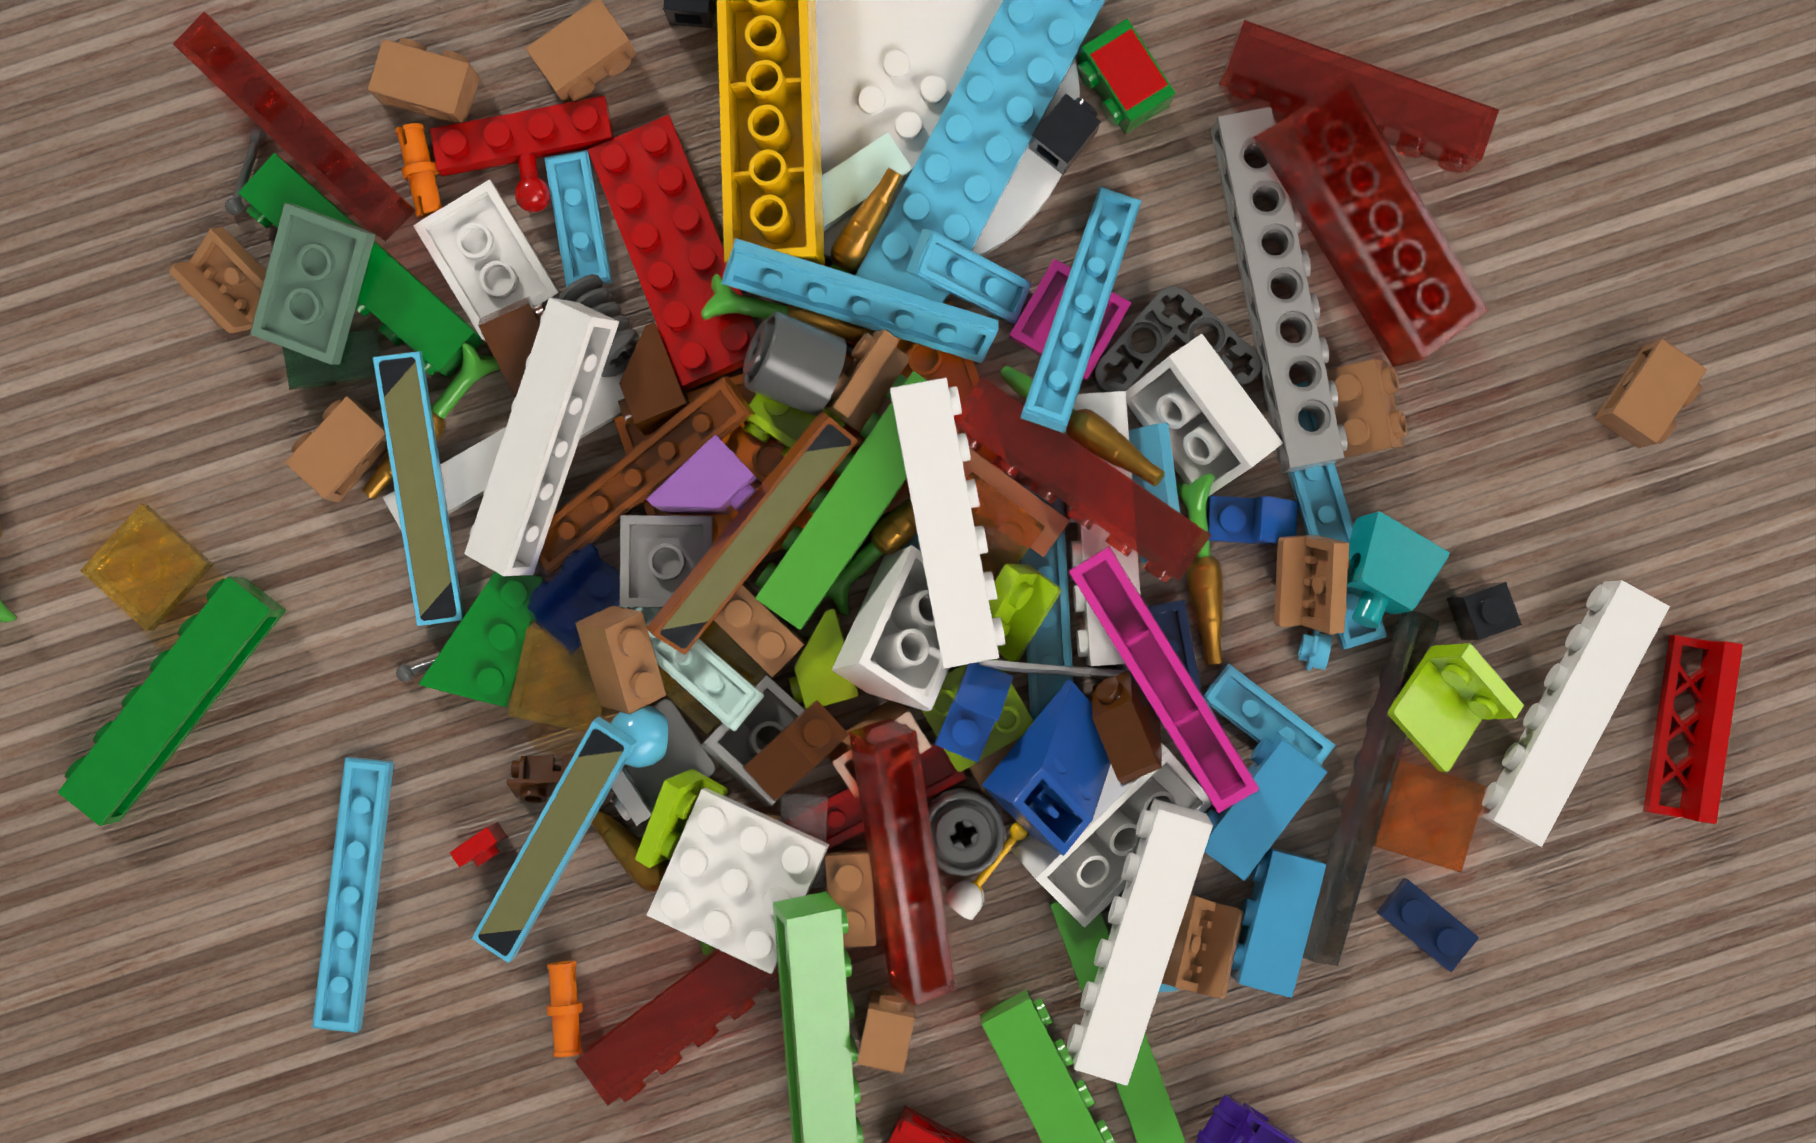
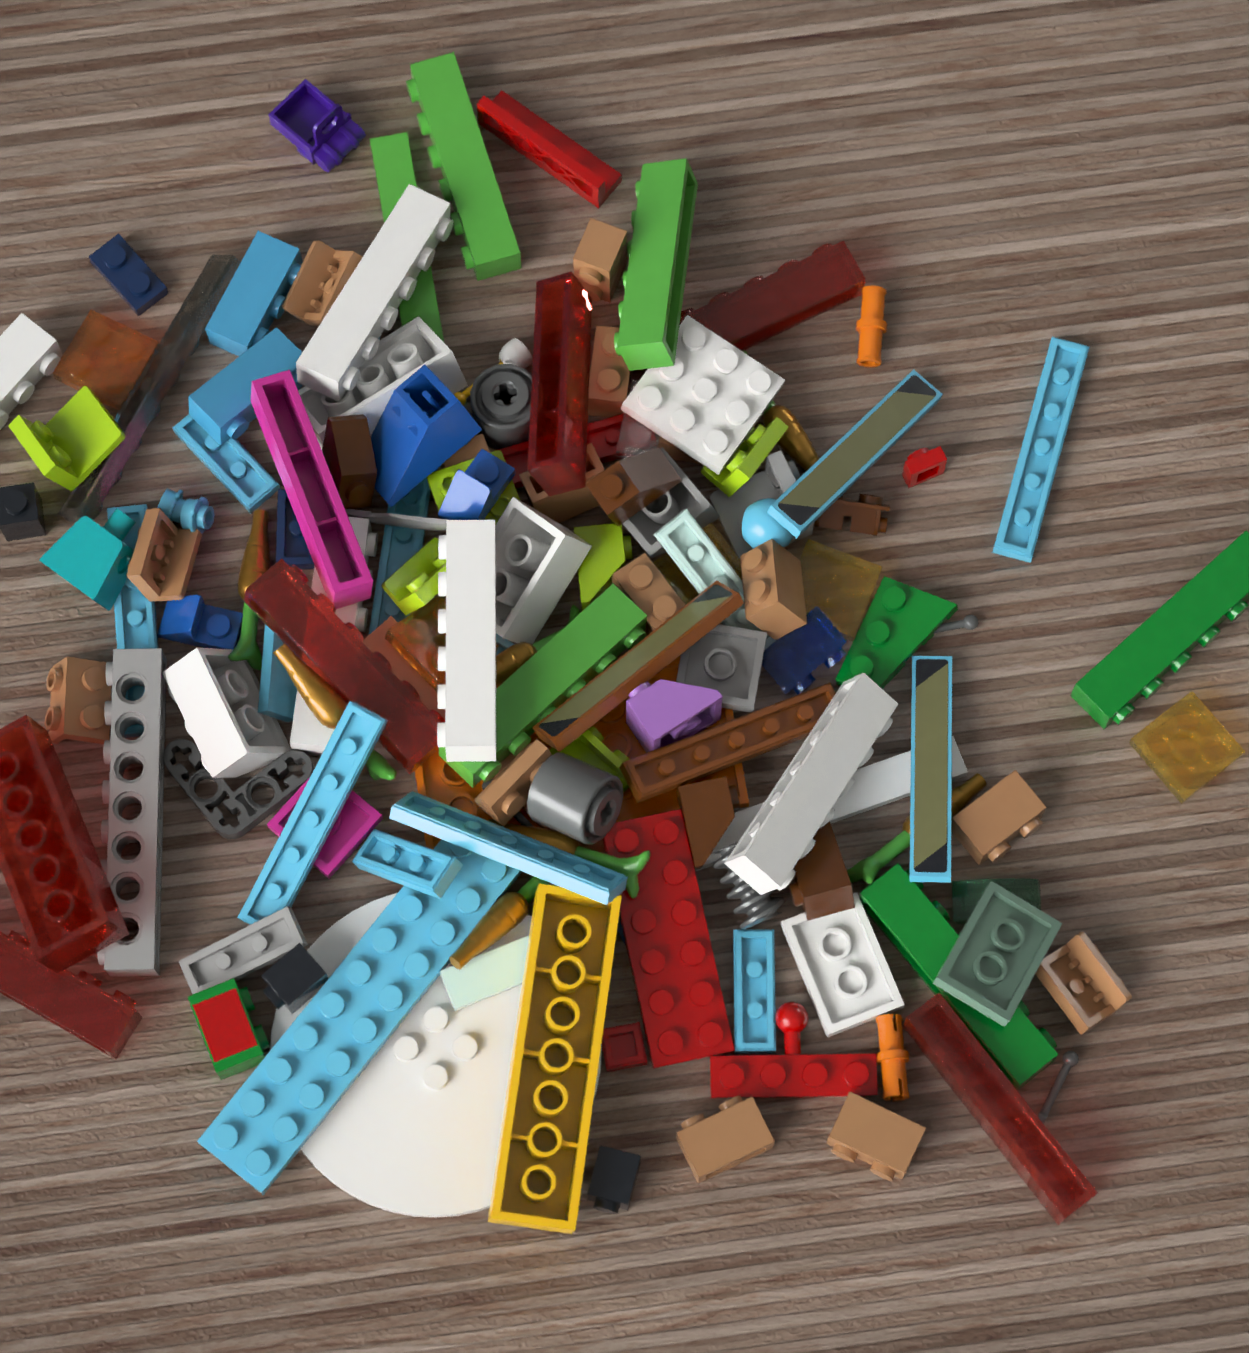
camera: 170 degrees left, 15 degrees down
(703, 136) = (623, 1047): none -> red tile
(1126, 157) = (243, 951): none -> light grey plate
(1284, 644) = (197, 515): none -> medium azure plate

